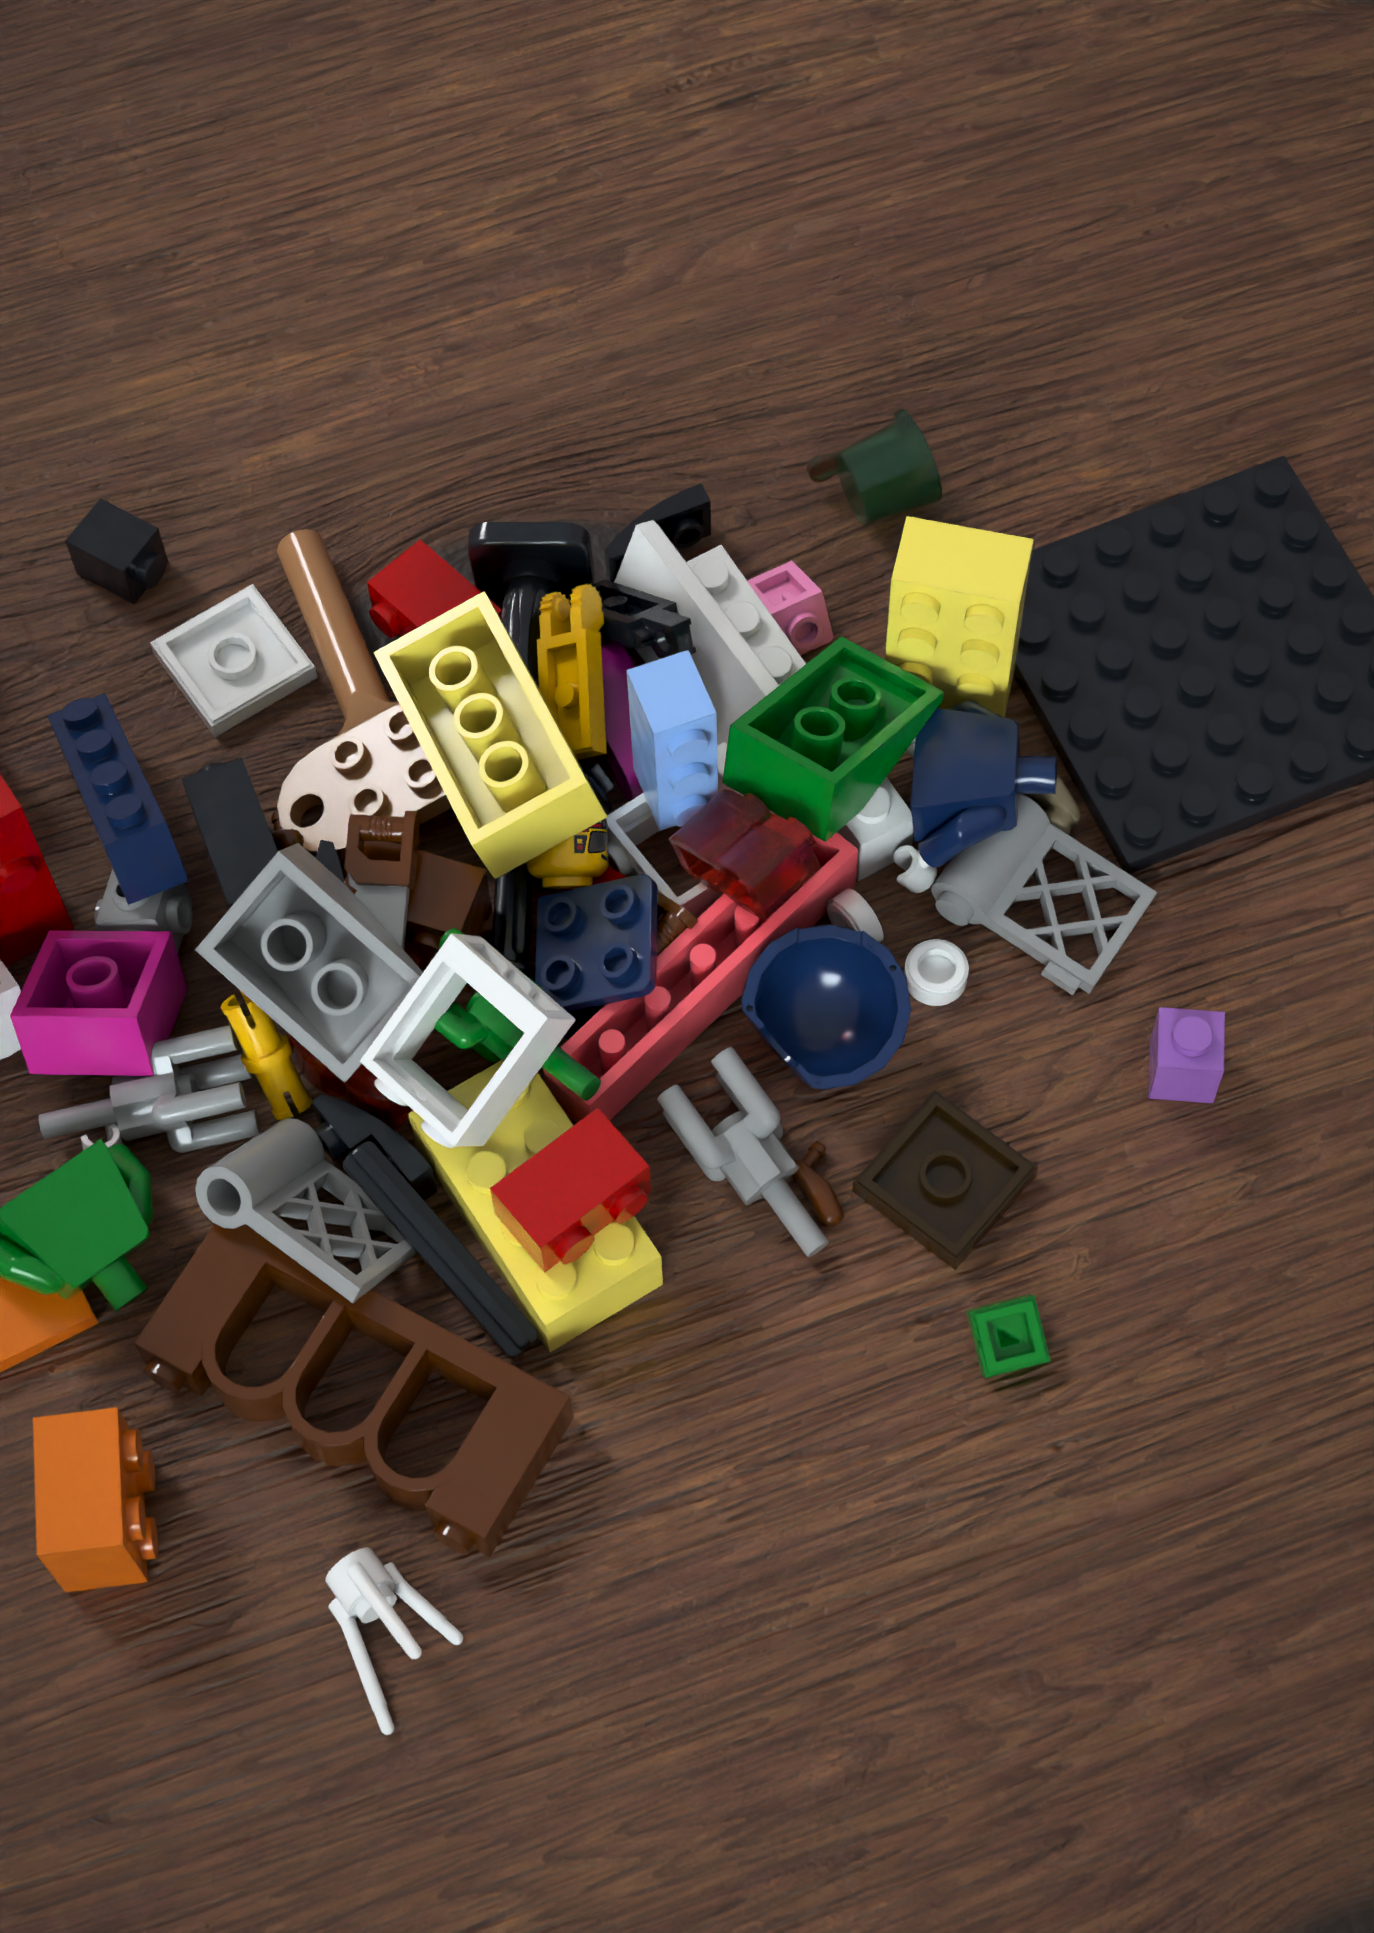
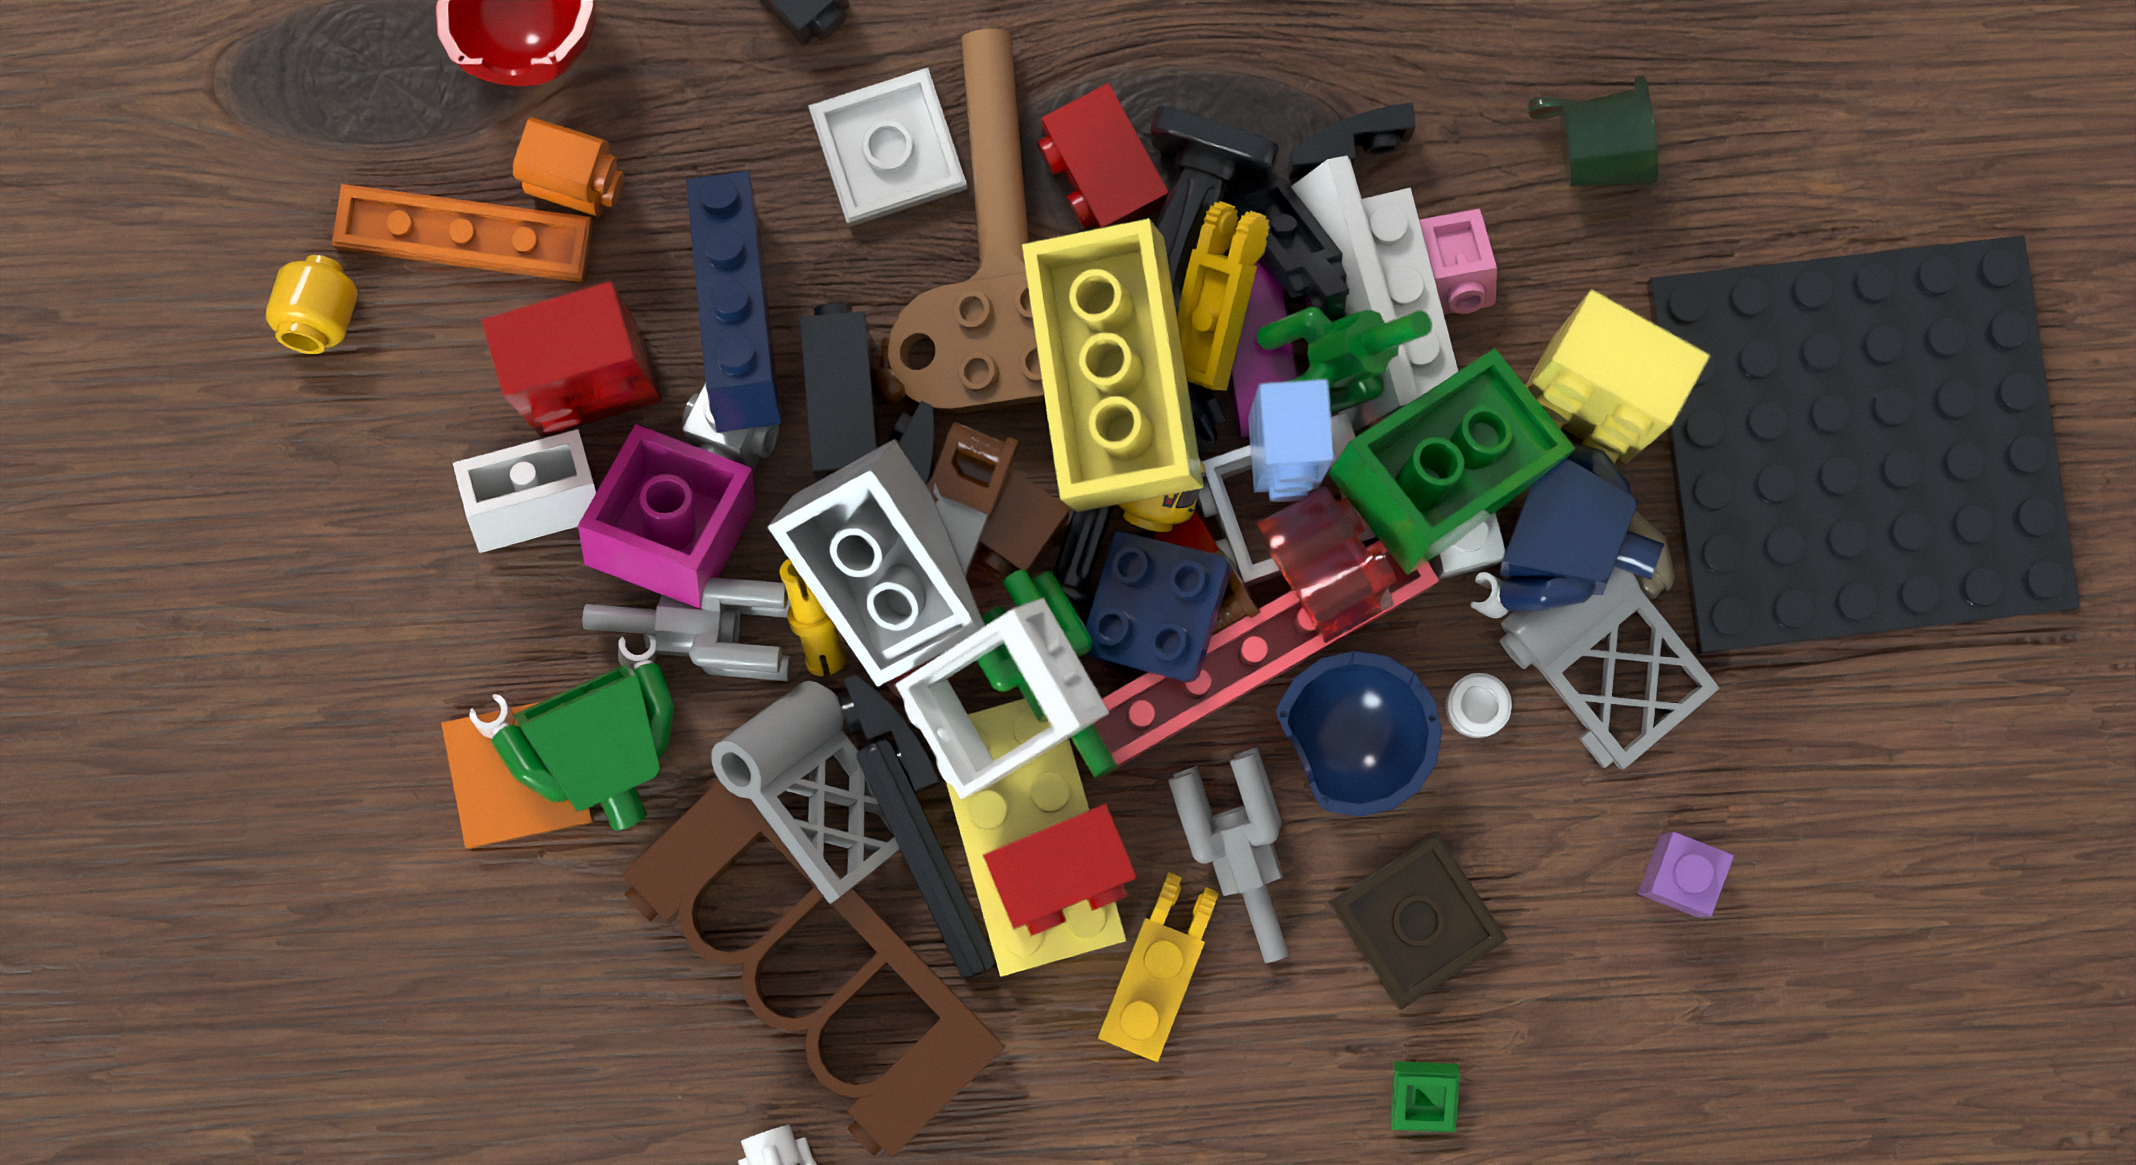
camera: 10 degrees right, 20 degrees up
(93, 1500) = (550, 1017): orange brick -> none
(704, 1303) = (1156, 975): none -> yellow hinge
(719, 656) = (1346, 351): none -> green plant
(817, 1188) = (1293, 894): reddish brown piece -> none
(853, 912) = (1415, 634): white tile -> none

